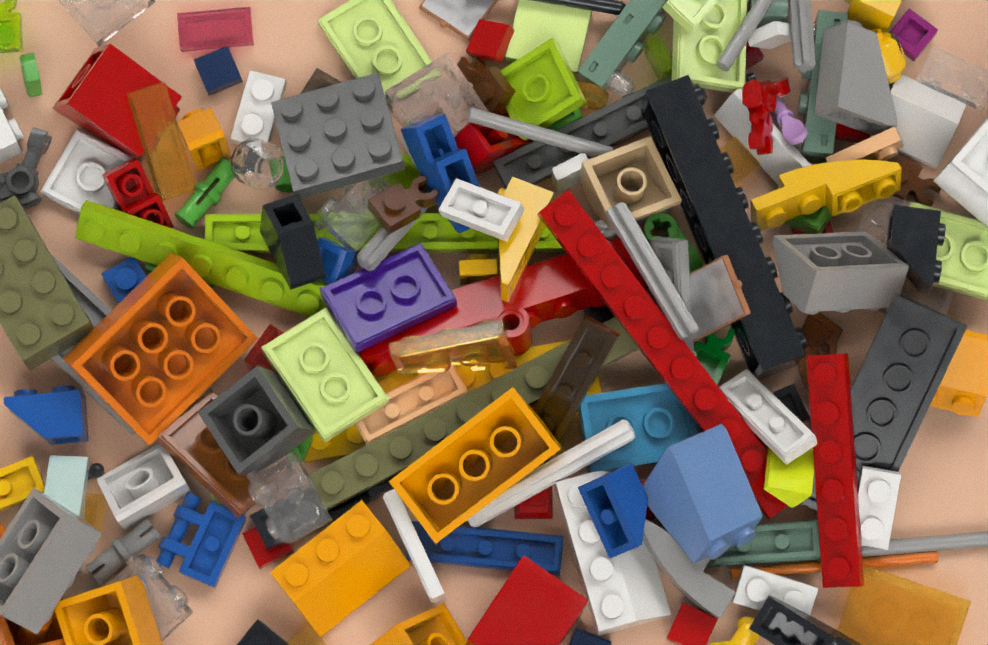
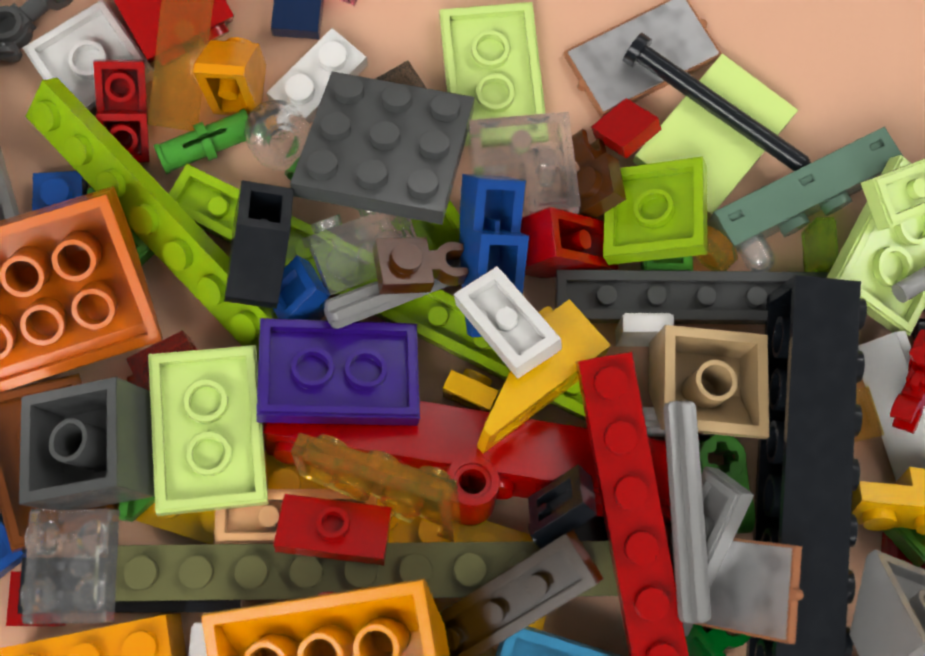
camera: 25 degrees right, 0 degrees up
(439, 394) = (333, 529): none -> red plate
(536, 133) = (626, 261): light grey bar -> none
(572, 306) = (561, 506): none -> black bracket

